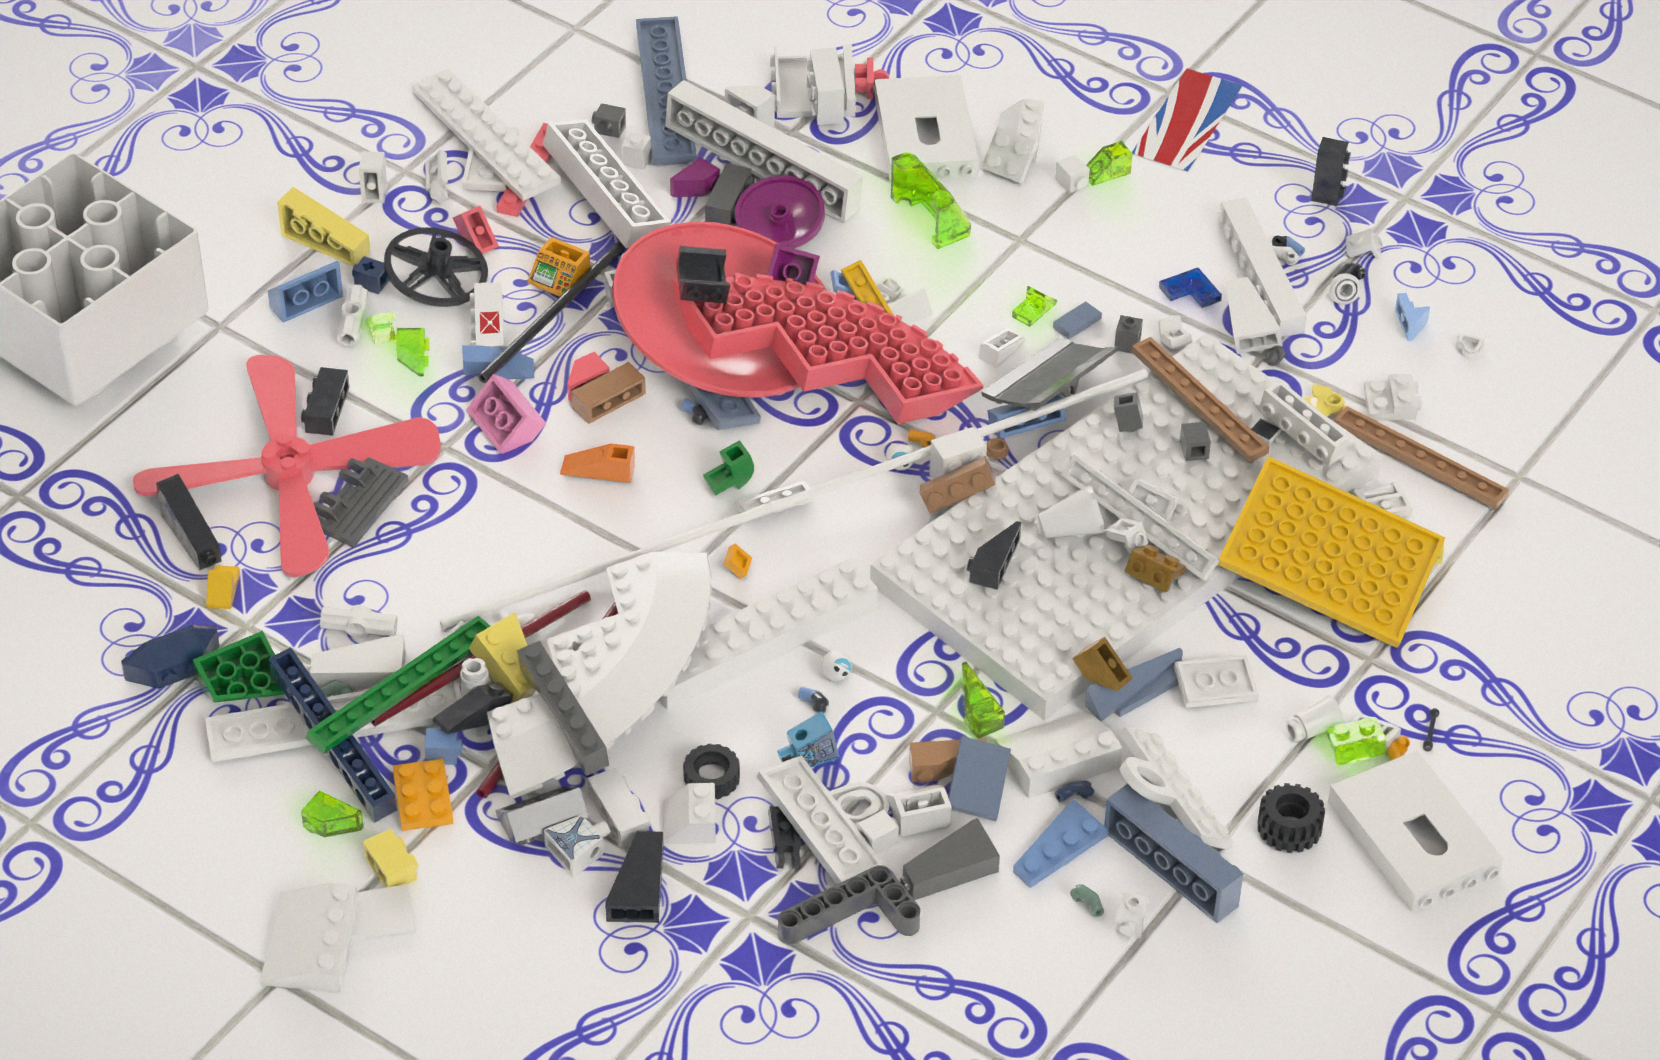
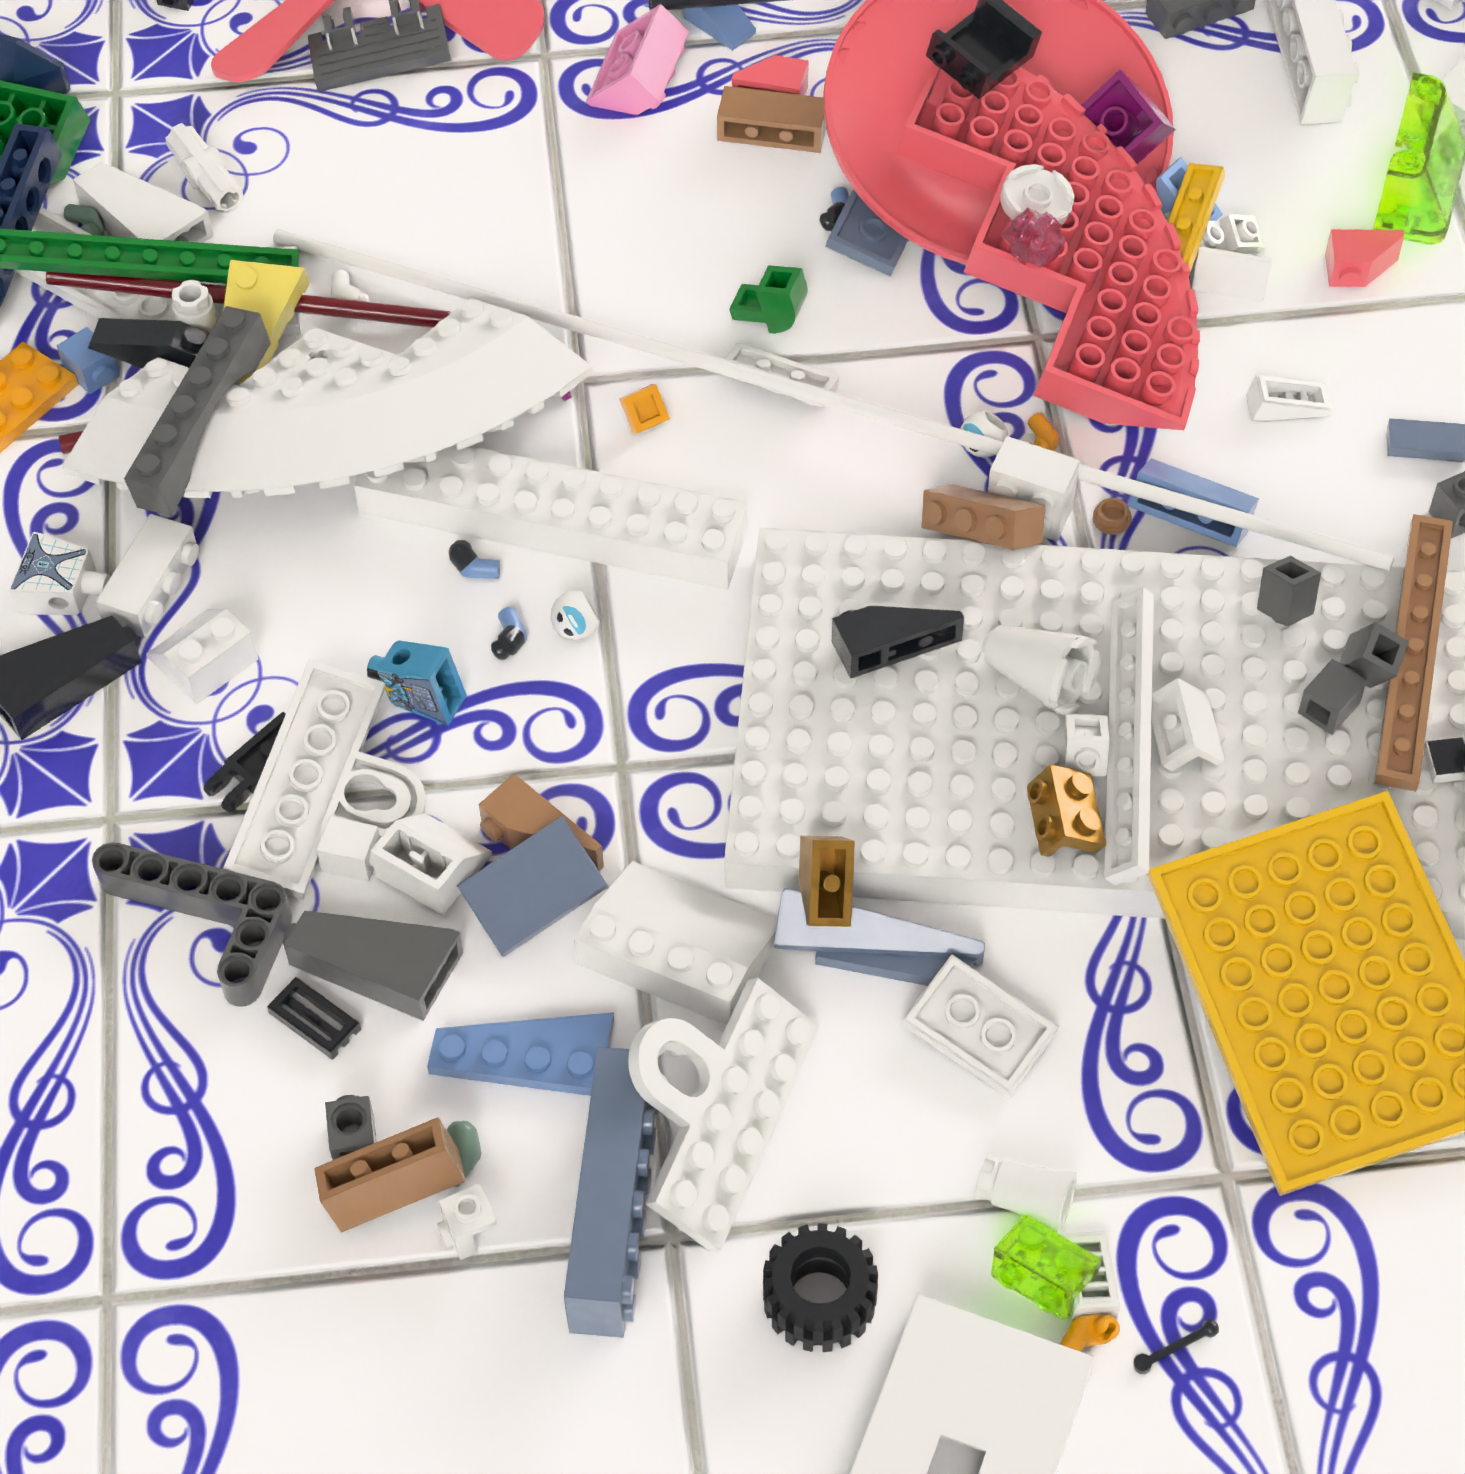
camera: 50 degrees right, 10 degrees up
(222, 586) = (143, 35): yellow slope -> none
(535, 814) = (71, 514): slope -> none
(603, 462) = (657, 190): orange slope -> none
(715, 755) = (286, 594): black tyre -> none
(754, 686) = (470, 564): none -> arm
(781, 210) = (1226, 56): magenta dish -> none
(807, 329) = (1037, 190): none -> white tile
(837, 335) = (1034, 237): none -> clear pink brick
(950, 262) = (1360, 255): none -> coral slope
(956, 911) = (339, 1038): none -> black tile
(981, 710) = (662, 797): clear neon green slope -> none
(1033, 307) = (1397, 384): clear neon green slope -> none
(1038, 928) = (348, 1111): none -> dark grey brick
(1047, 374) = (1278, 472): hinge -> none
(1072, 788) = (631, 999): dark blue arm -> none
(1083, 922) = (389, 1174): none -> medium nougat brick
(1192, 409) = (1374, 653): none -> dark grey brick

